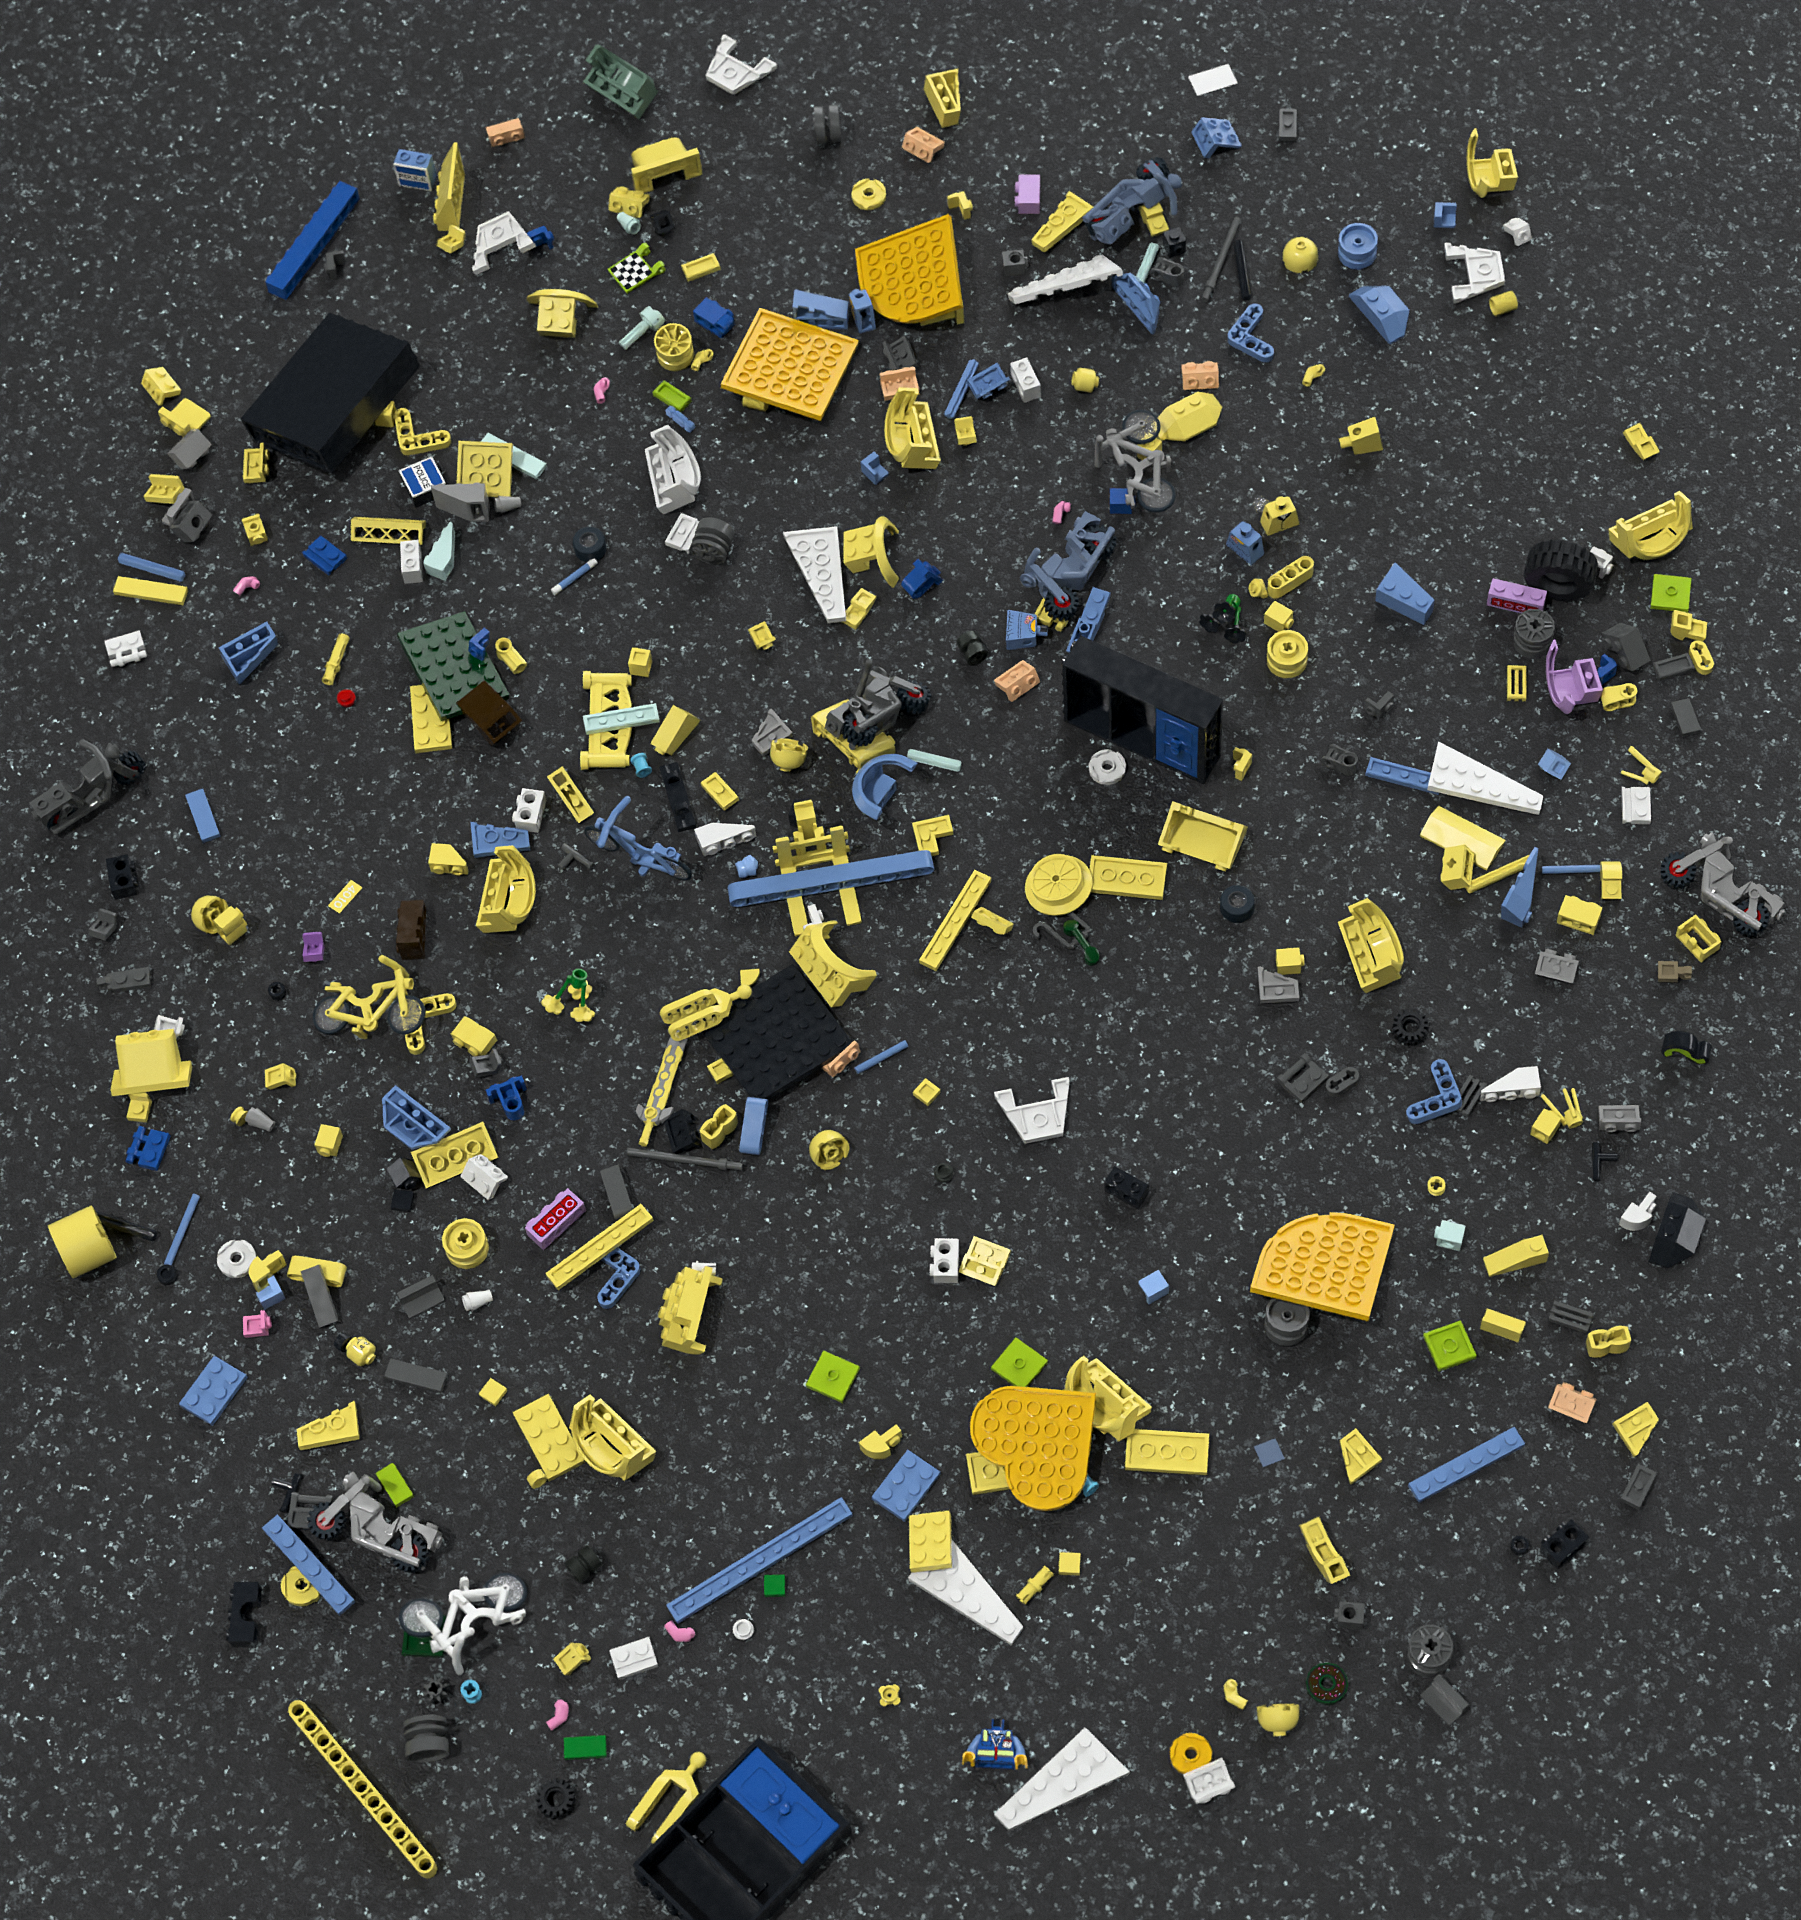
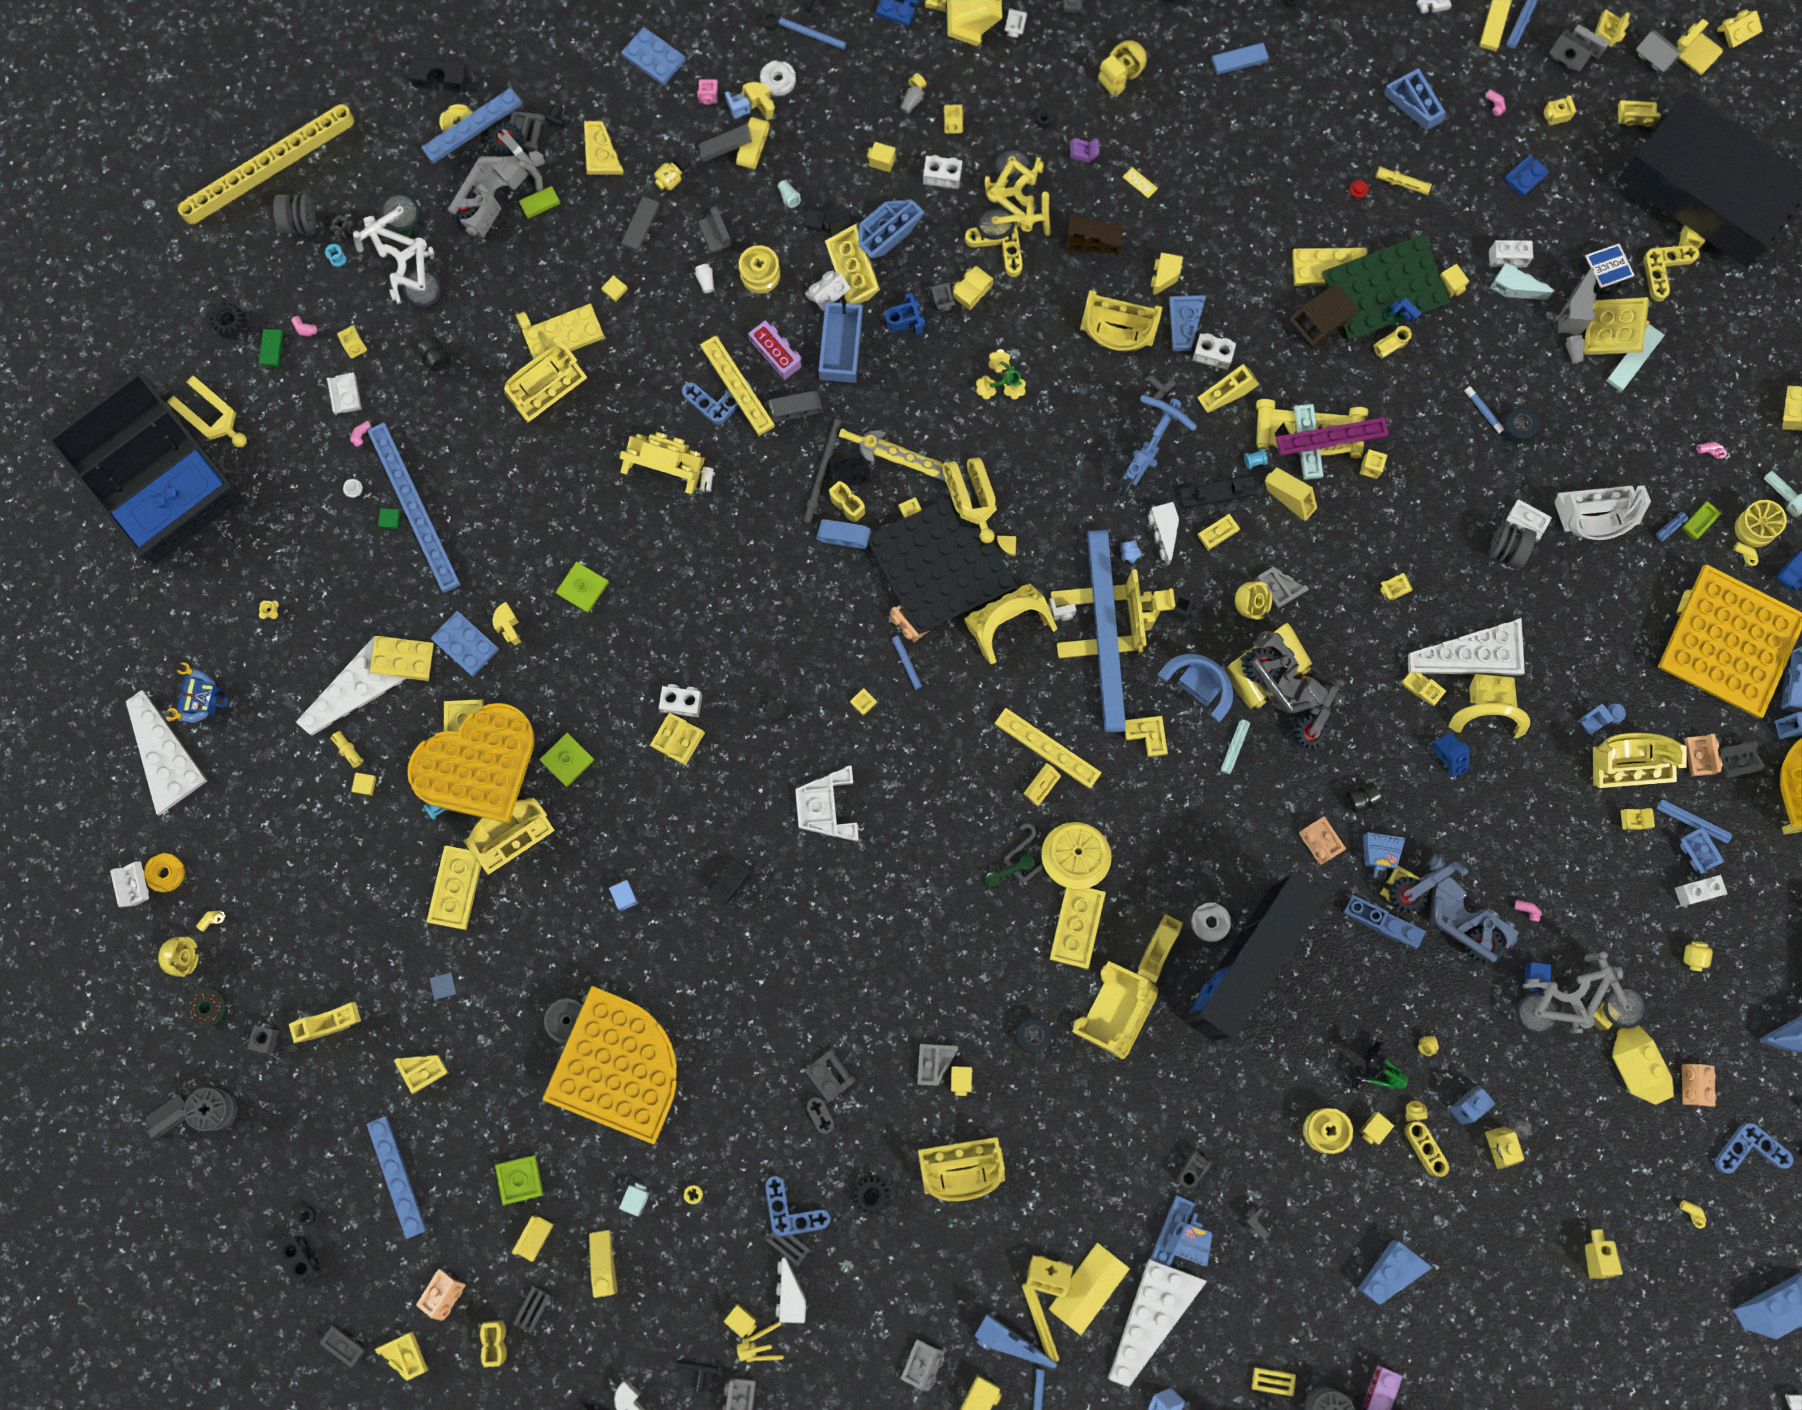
camera: 90 degrees right, 15 degrees up
(347, 1079) = (942, 176): none -> white brick
(375, 1228) = (789, 194): none -> light aqua cone
(383, 523) = (1556, 232): light yellow fence -> none
(442, 607) = (1454, 281): none -> light yellow brick
(544, 1152) = (840, 342): none -> medium blue piece
(617, 695) = (1332, 436): none -> magenta plate
(828, 1149) = (810, 600): light yellow cylinder -> none
(865, 451) = (1617, 712): none -> medium blue plate
(1139, 806) = (1159, 948): none -> light yellow arch
(1197, 582) = (1428, 1045): none -> light yellow plate
(1243, 762) = (1196, 1063): light yellow bracket -> none
(1404, 754) = (1191, 1240): none -> medium blue torso

